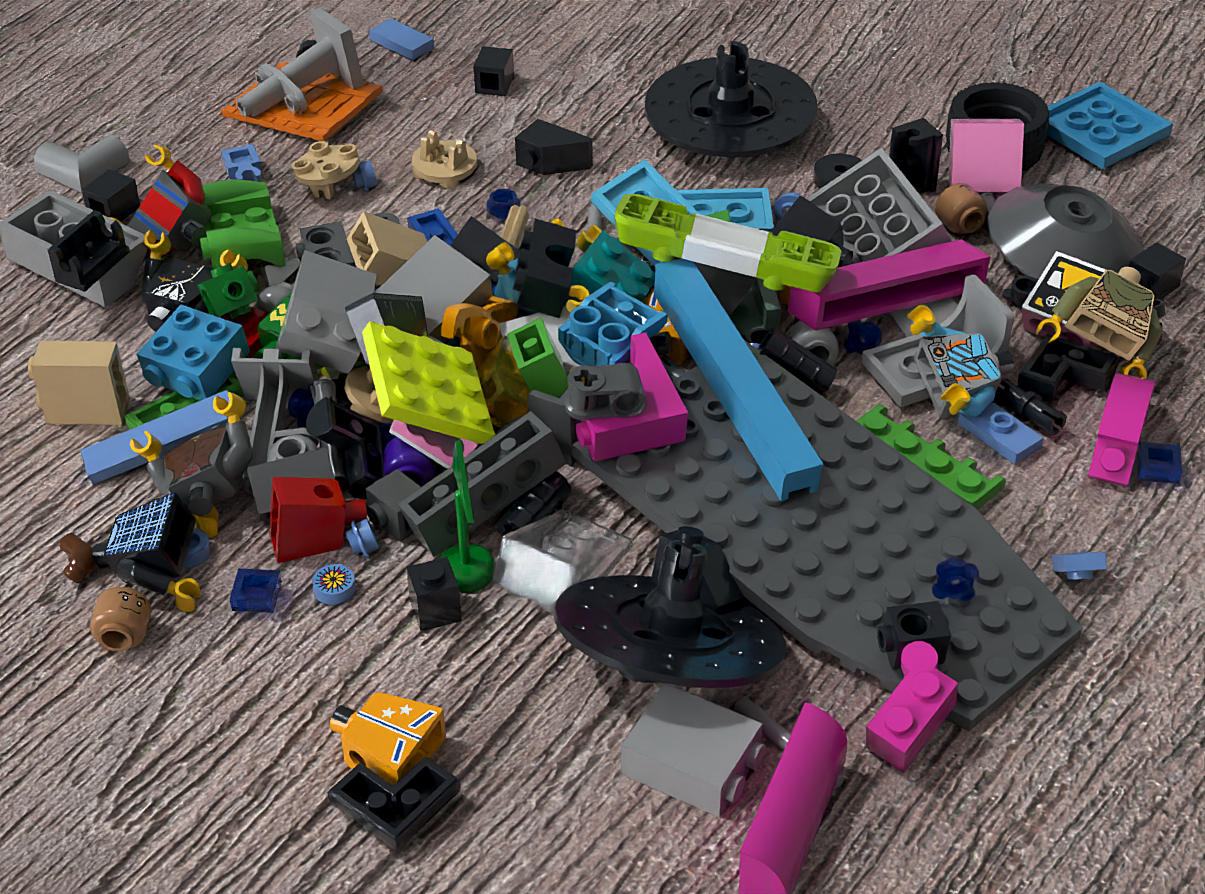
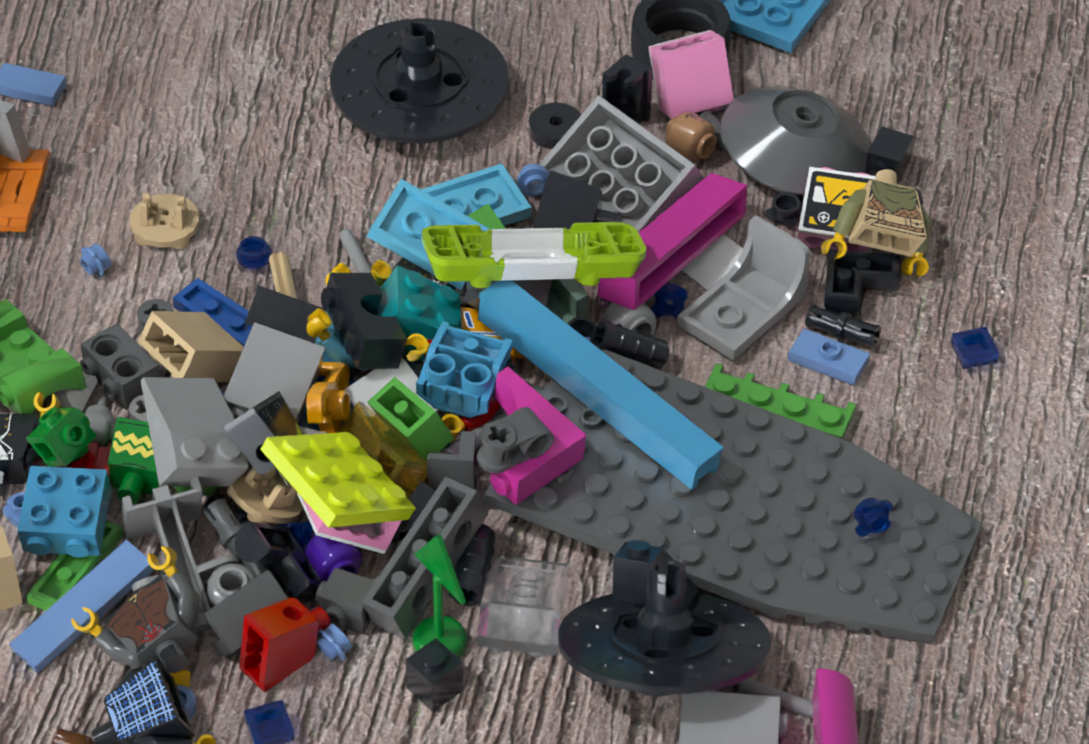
camera: 25 degrees left, 5 degrees up
(300, 405) = (198, 529): clear blue plate -> none
(325, 166) = (57, 262): tan plate -> none
(334, 584) = (332, 695): tile -> none
(493, 71) = (154, 100): black brick -> none
(552, 149) = (269, 177): black slope -> none
(910, 624) = (865, 578): black brick -> none
(913, 708) = (893, 641): dark pink hinge -> none
(956, 366) = (775, 310): torso -> none
(1079, 564) = (954, 465): medium blue plate -> none
(1121, 429) = (936, 319): dark pink arch -> none

